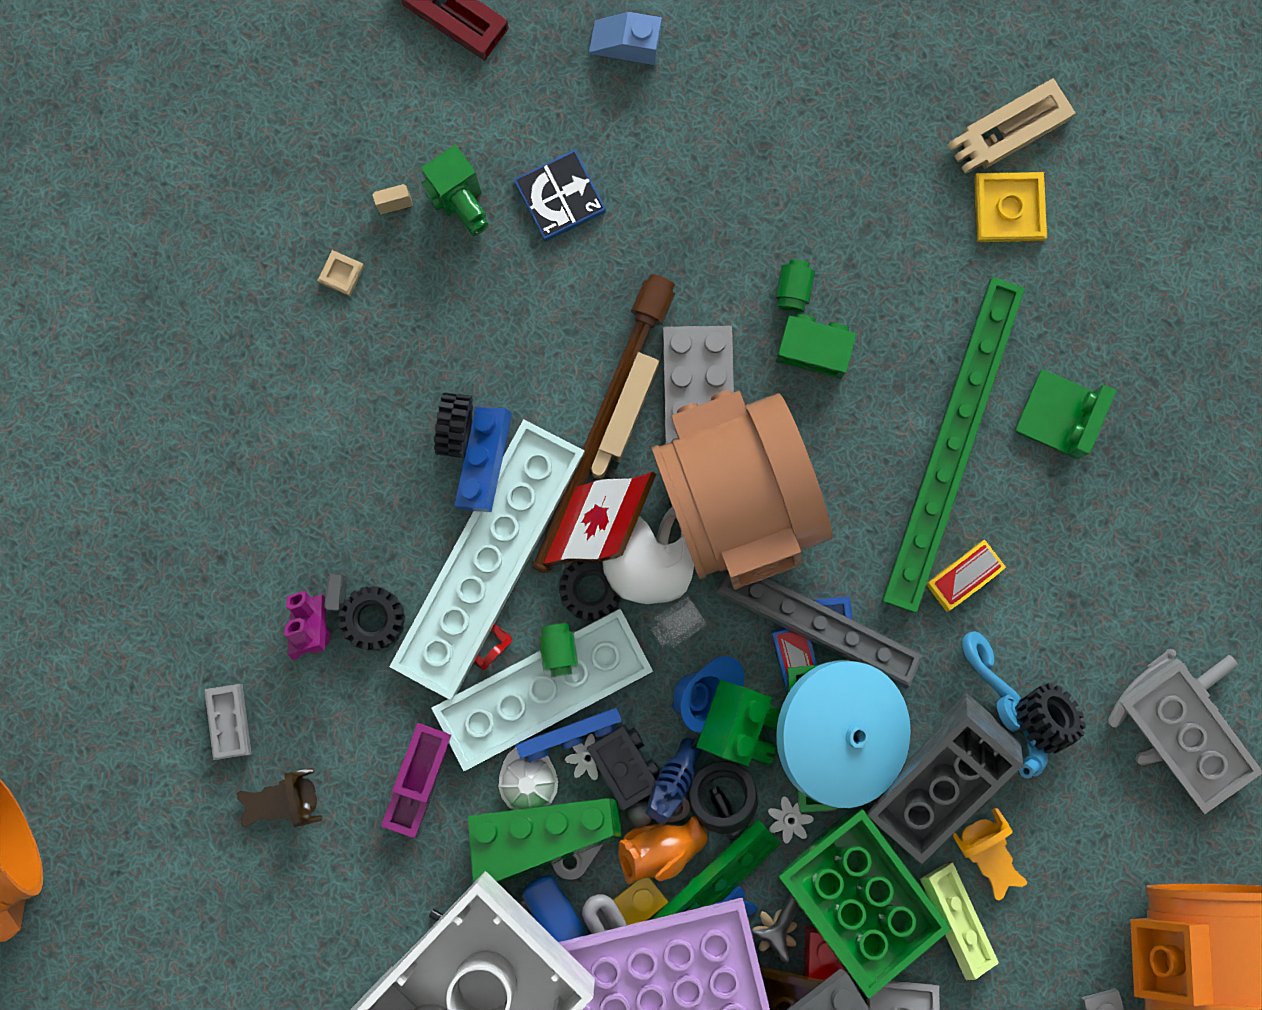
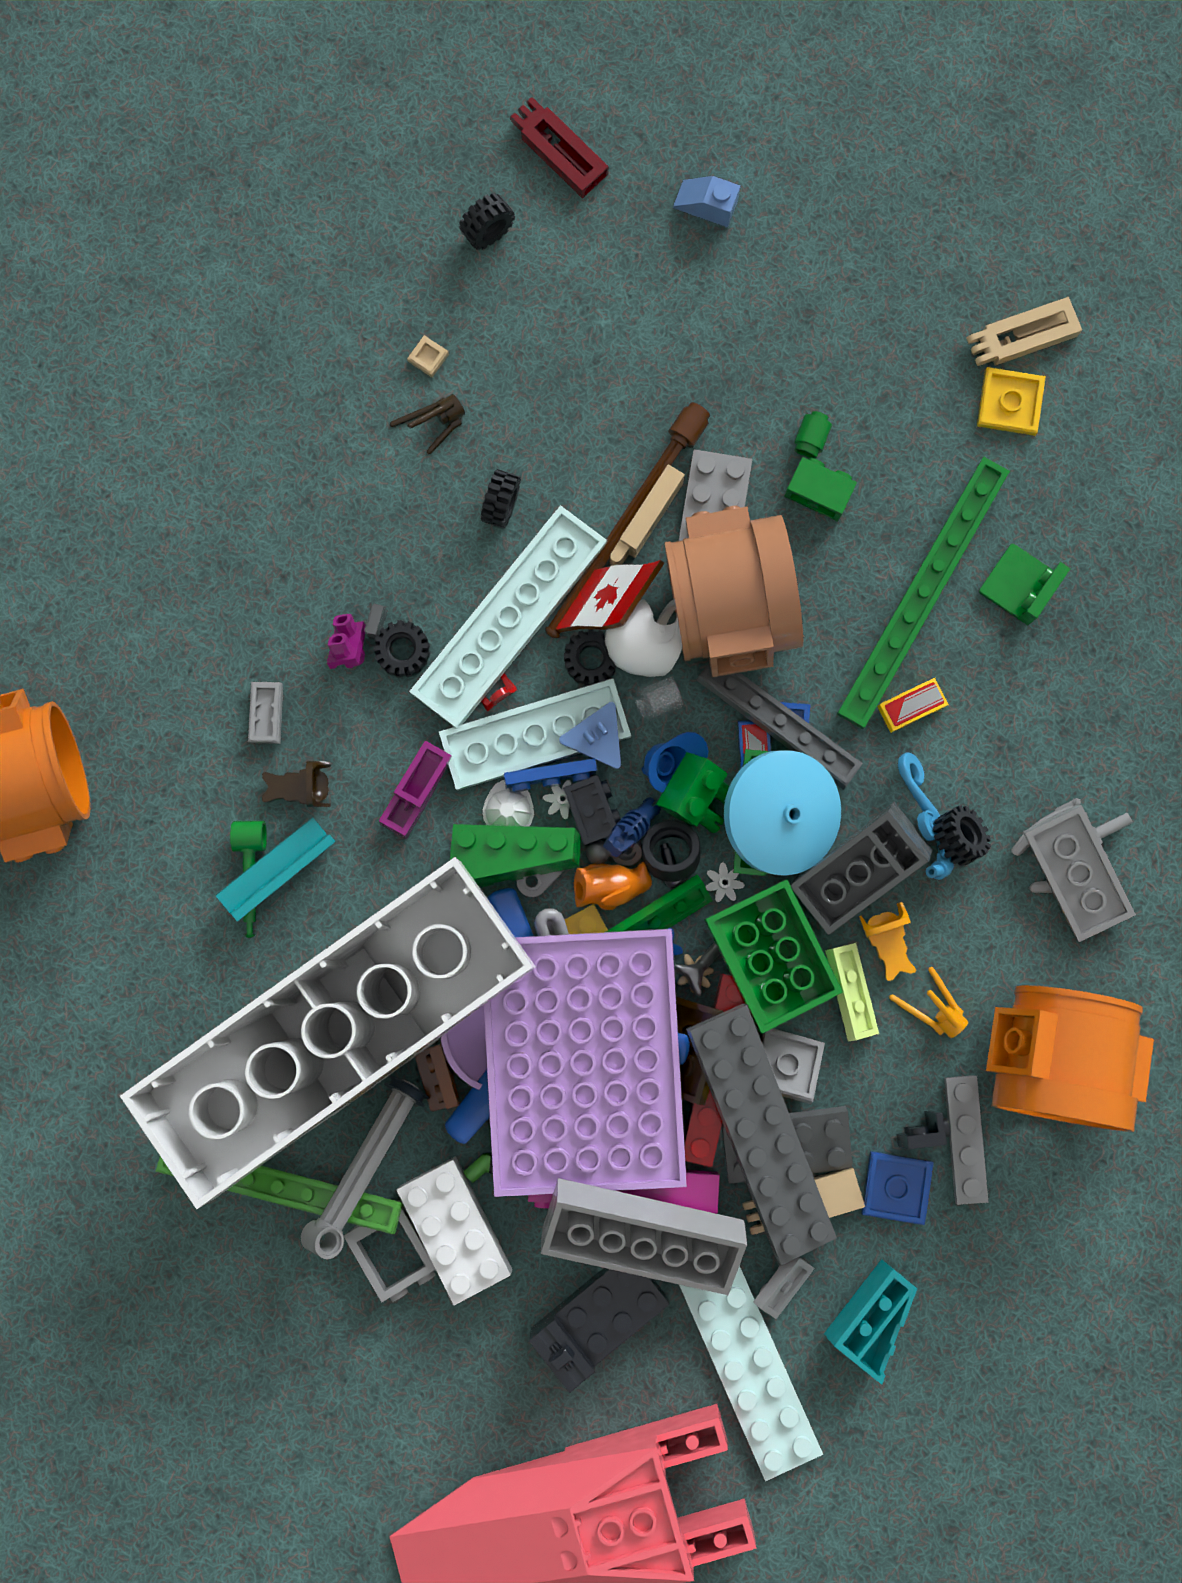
camera: 15 degrees right, 0 degrees up
(233, 874) = (248, 838): none -> green piece
(270, 906) = (274, 869): none -> teal fence
(372, 332) = (446, 409): none -> dark brown plant
(380, 107) = (486, 221): none -> black tyre
(392, 199) = (483, 300): tan tile -> none
(454, 186) = (538, 300): green brick -> none
(483, 459) = (520, 532): blue plate -> none
(558, 649) = (554, 701): green brick -> none
(560, 195) = (626, 323): tile -> none
(614, 680) = (597, 736): none -> medium blue piece
(1074, 930) = (949, 1017): none -> light orange plant

